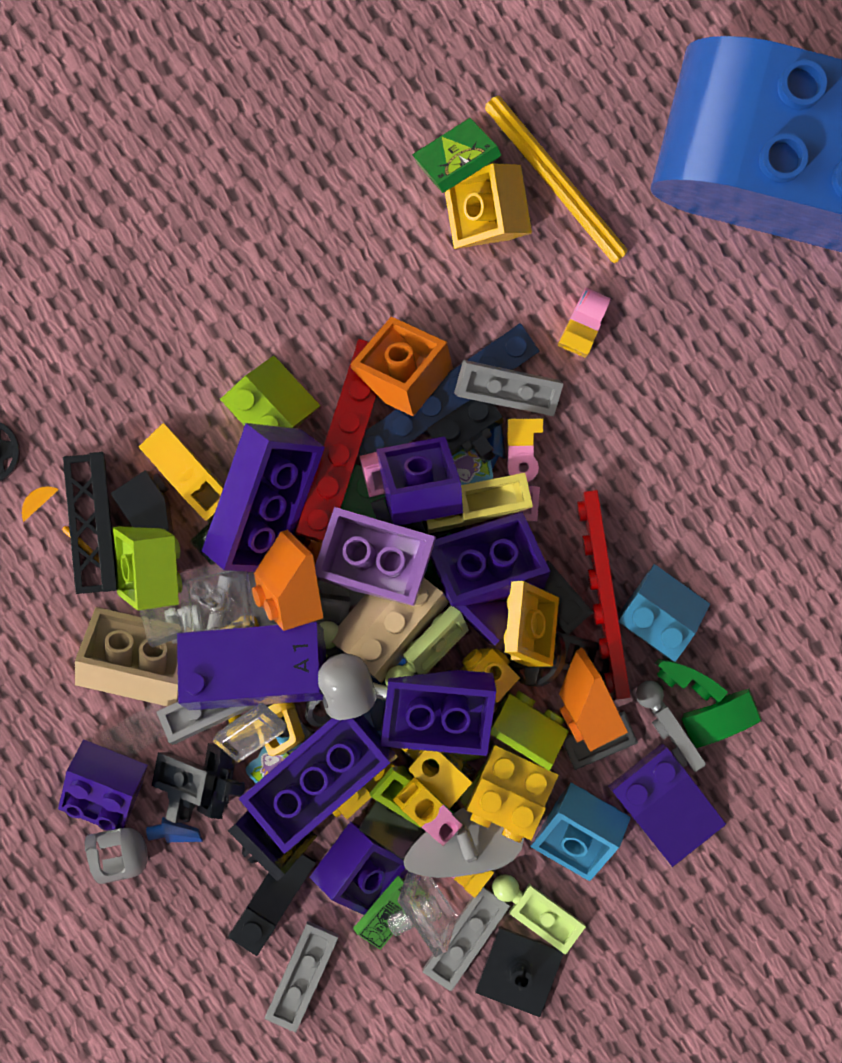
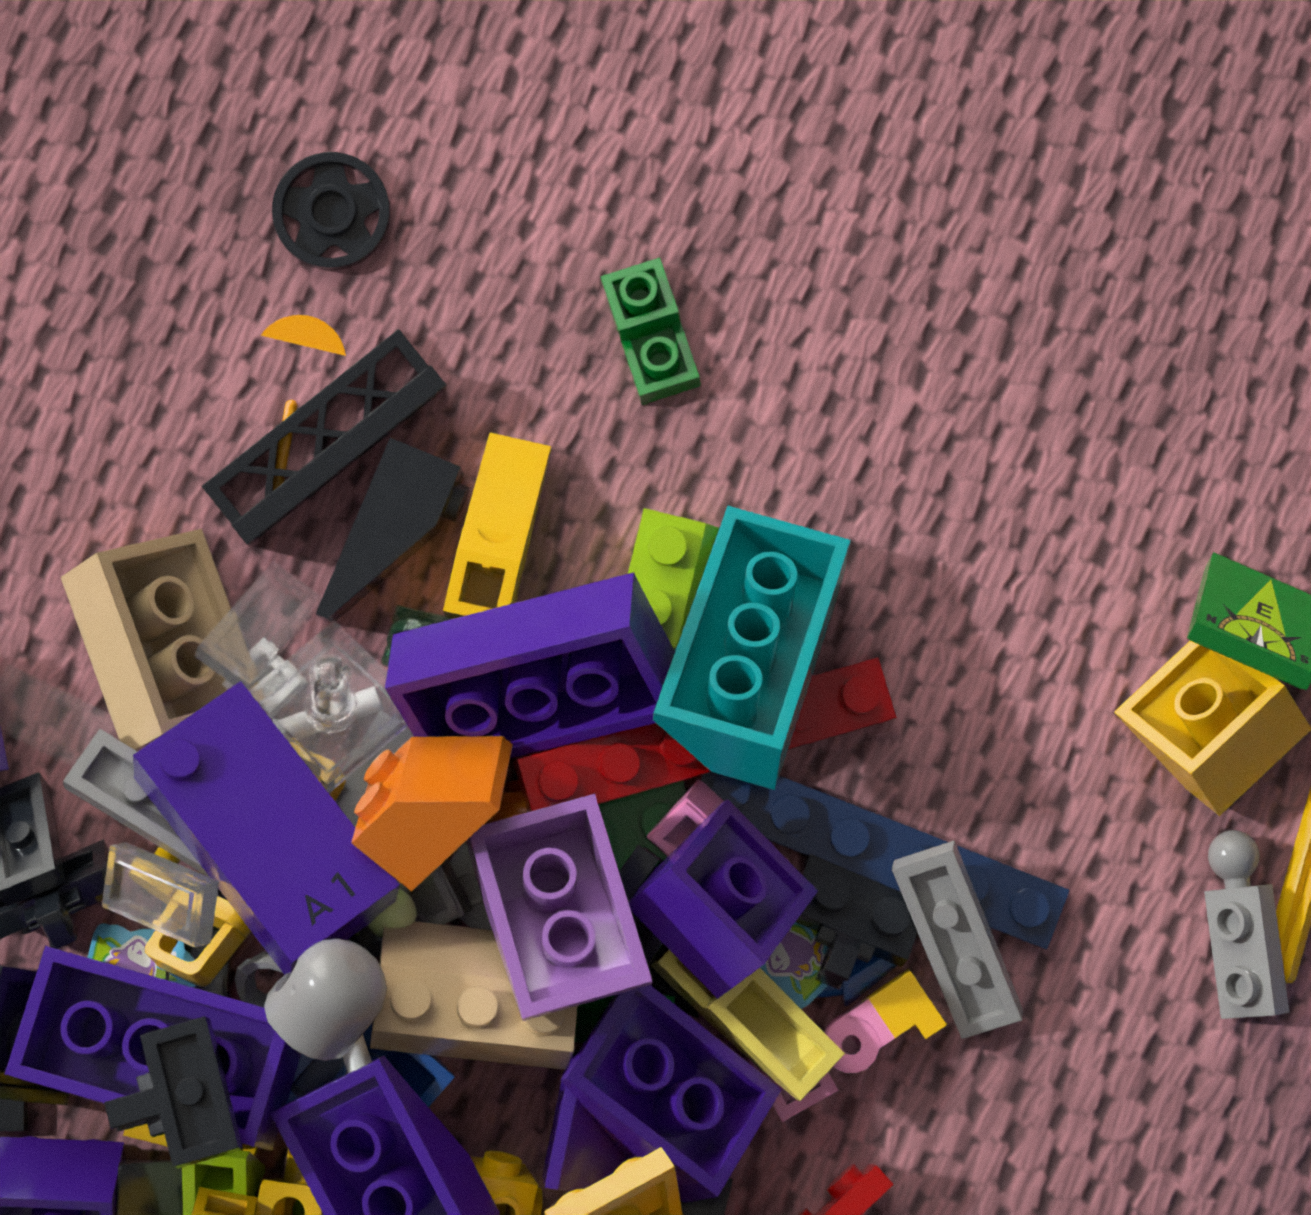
camera: 55 degrees right, 5 degrees down
(140, 342) = (650, 331): none -> green slope
(147, 567) = (313, 568): lime slope -> none
(314, 391) = (751, 644): none -> teal slope
(346, 780) = (182, 1095): none -> black hinge
(403, 365) = (884, 754): orange slope -> none
(431, 645) = (480, 1088): yellowish green plate -> none
(584, 323) = (1137, 990): leg -> none
(591, 257) = (1244, 932): none -> light grey plate

